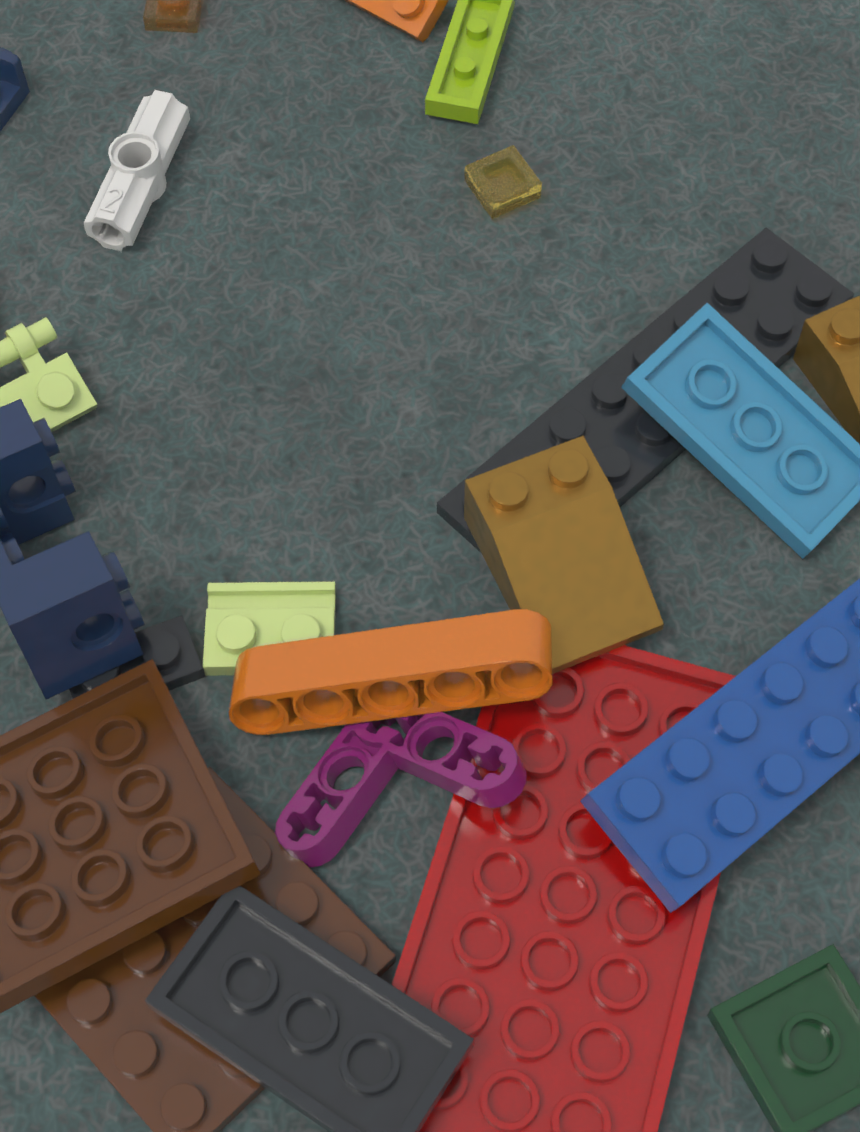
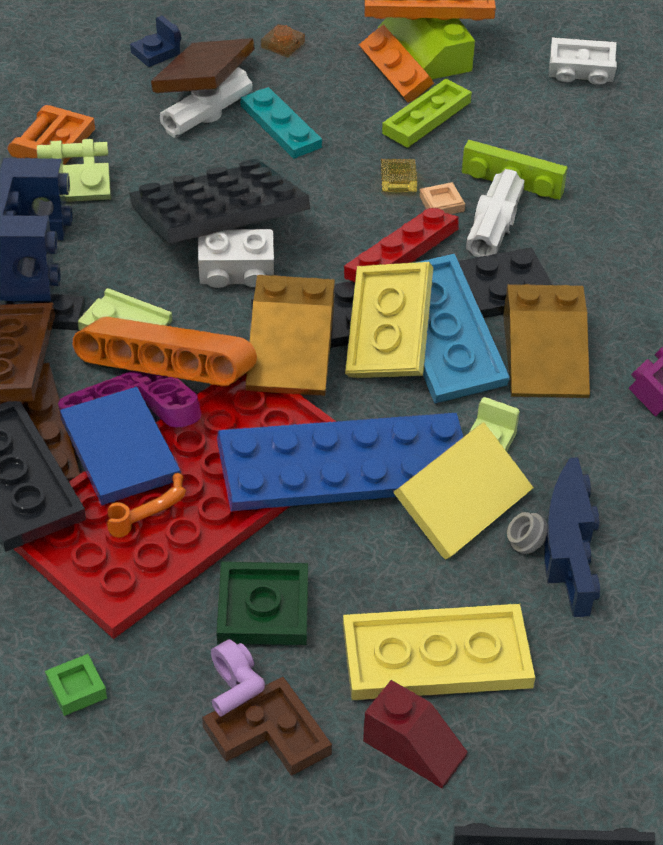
camera: 25 degrees right, 15 degrees down
(102, 111) = (203, 66): none -> reddish brown tile
(267, 157) = (281, 122): none -> teal plate
(289, 356) = (217, 200): none -> black plate
(378, 440) = (235, 257): none -> white bracket
(433, 879) = (119, 445): none -> blue tile
(552, 972) = (122, 517): none -> orange piece
(586, 196) = (443, 197): none -> light nougat tile
(595, 314) = (407, 242): none -> red plate
(660, 103) = (539, 176): none -> lime plate
(681, 458) = (389, 320): none -> light yellow tile
(682, 192) = (495, 214): none -> white piece

